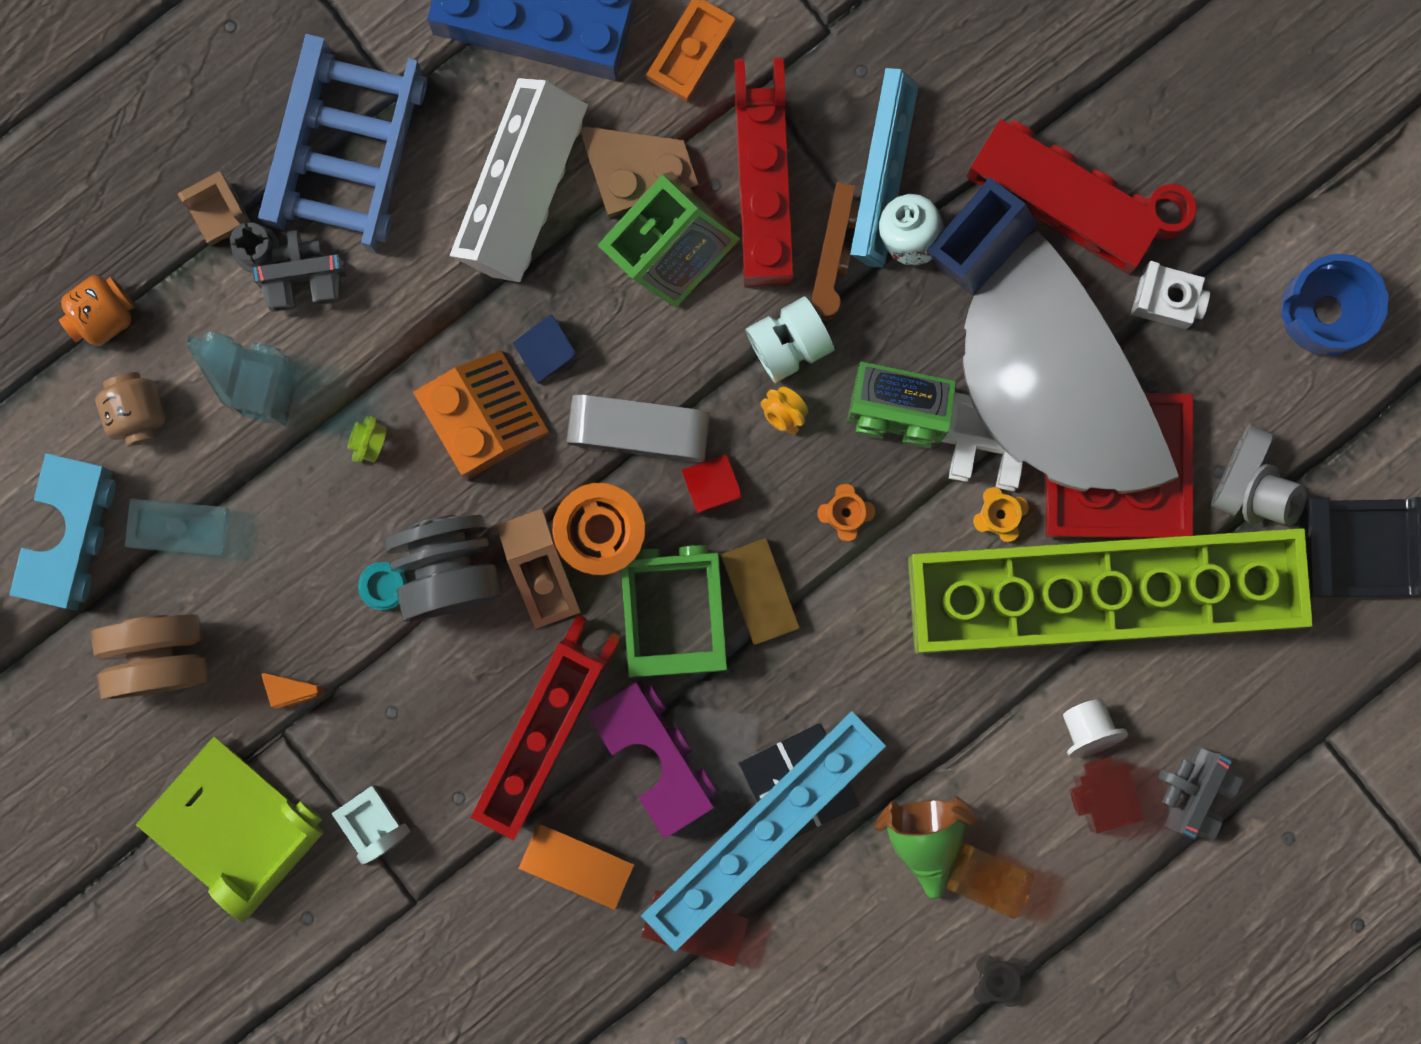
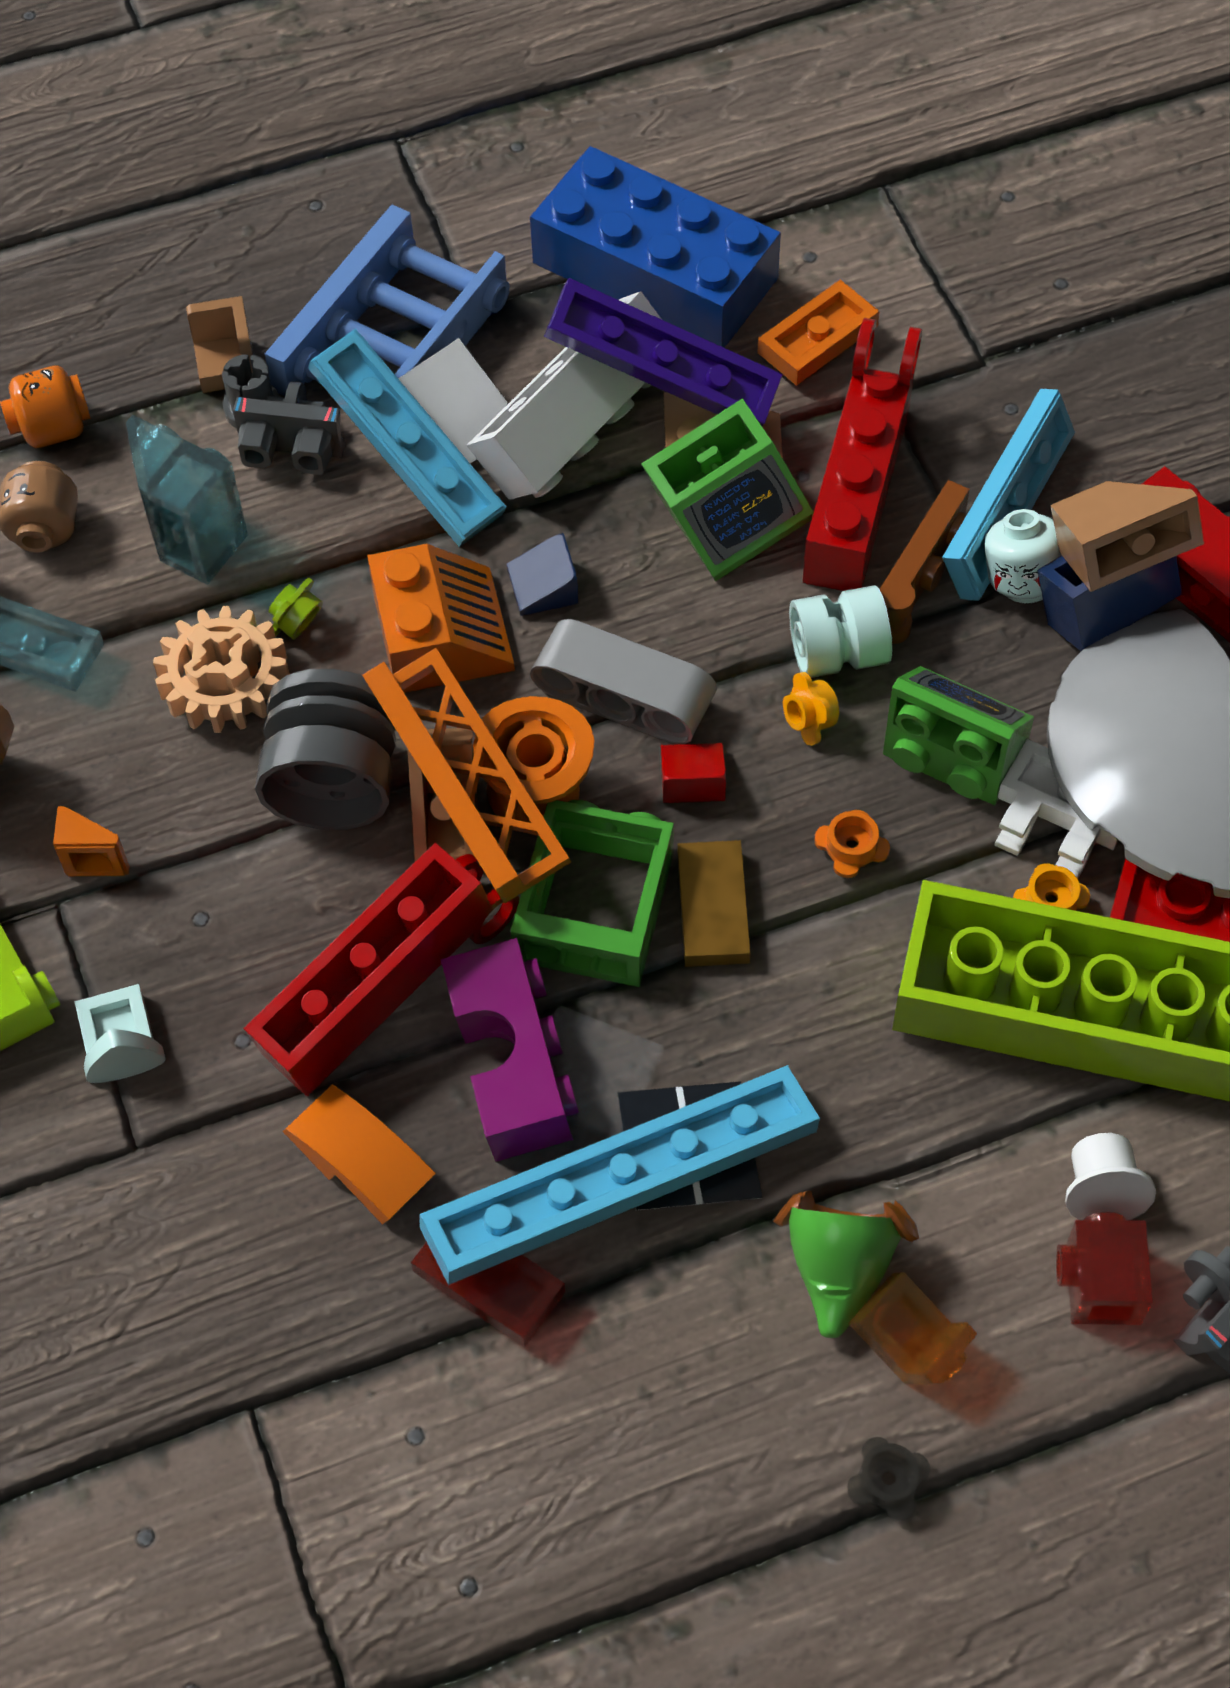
camera: 20 degrees right, 25 degrees down
(319, 530) = (220, 669): none -> light nougat gear
(379, 585) = (238, 772): teal tile -> none
(400, 263) = (407, 437): none -> medium azure tile
(420, 216) = (455, 394): none -> white sticker
(549, 590) = (441, 776): none -> orange fence
(583, 140) = (659, 352): none -> dark purple plate
(986, 215) = (1124, 529): none -> medium nougat slope

